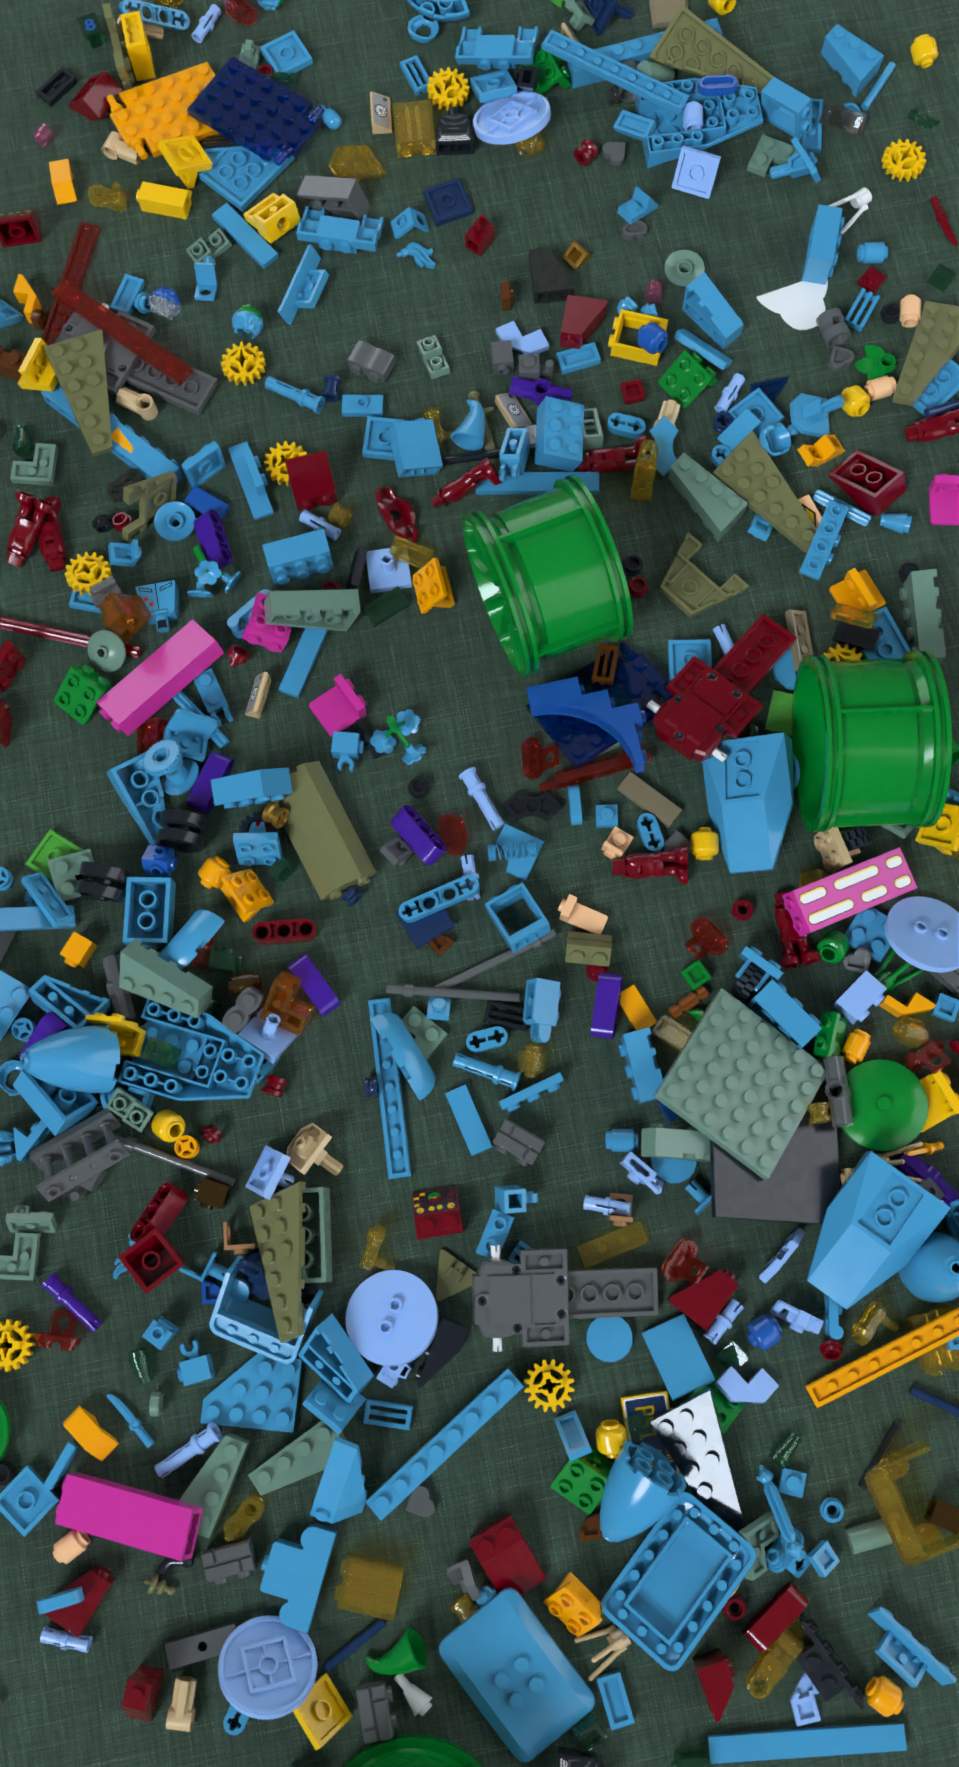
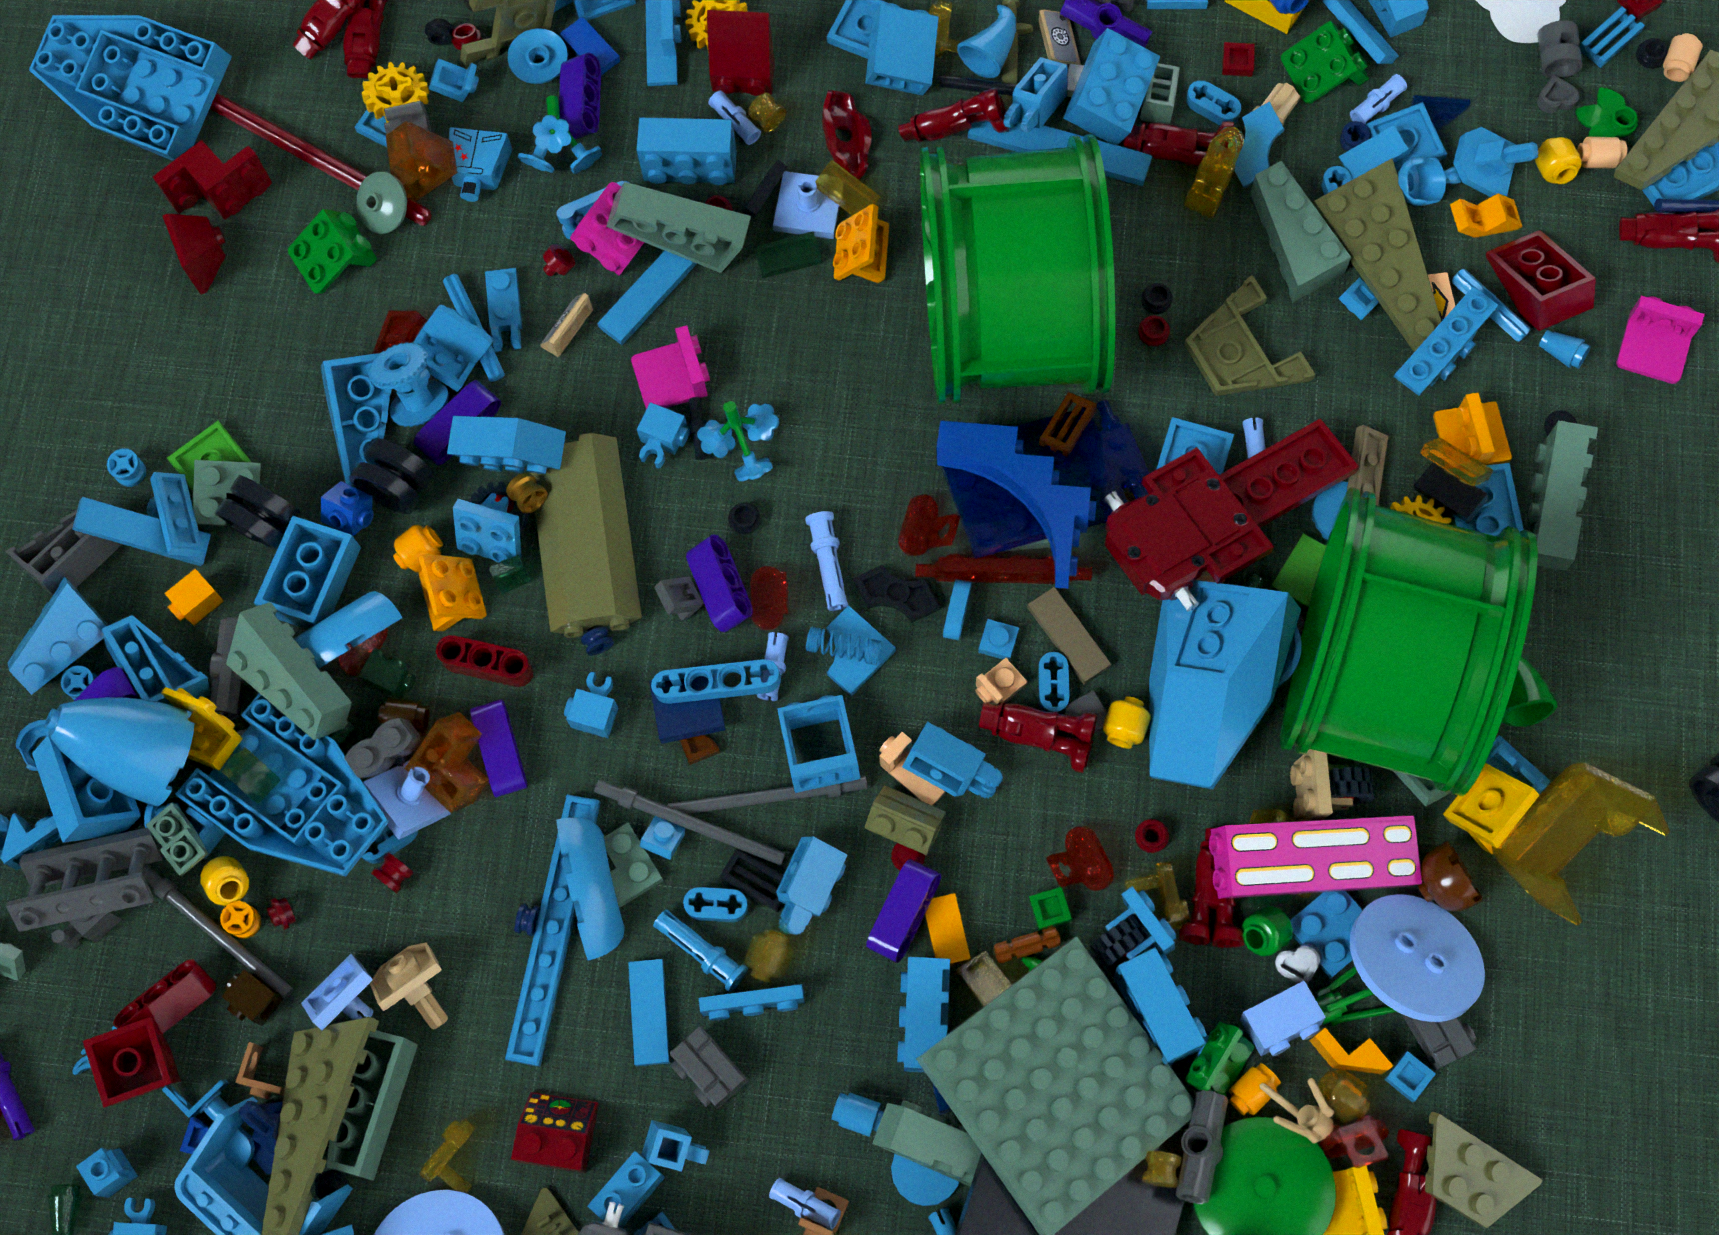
camera: 20 degrees right, 5 degrees down
(159, 678) = (438, 260): dark pink brick -> none
(365, 942) = (593, 710): none -> dark azure brick
(605, 904) = (951, 764): none -> dark azure hinge
(641, 1172) = (870, 1171): light blue piece -> none
(760, 935) = (1174, 908): none -> clear yellow piece
(898, 1053) = (1313, 1121): none -> tan plant
(931, 880) = (1447, 880): none -> reddish brown cylinder

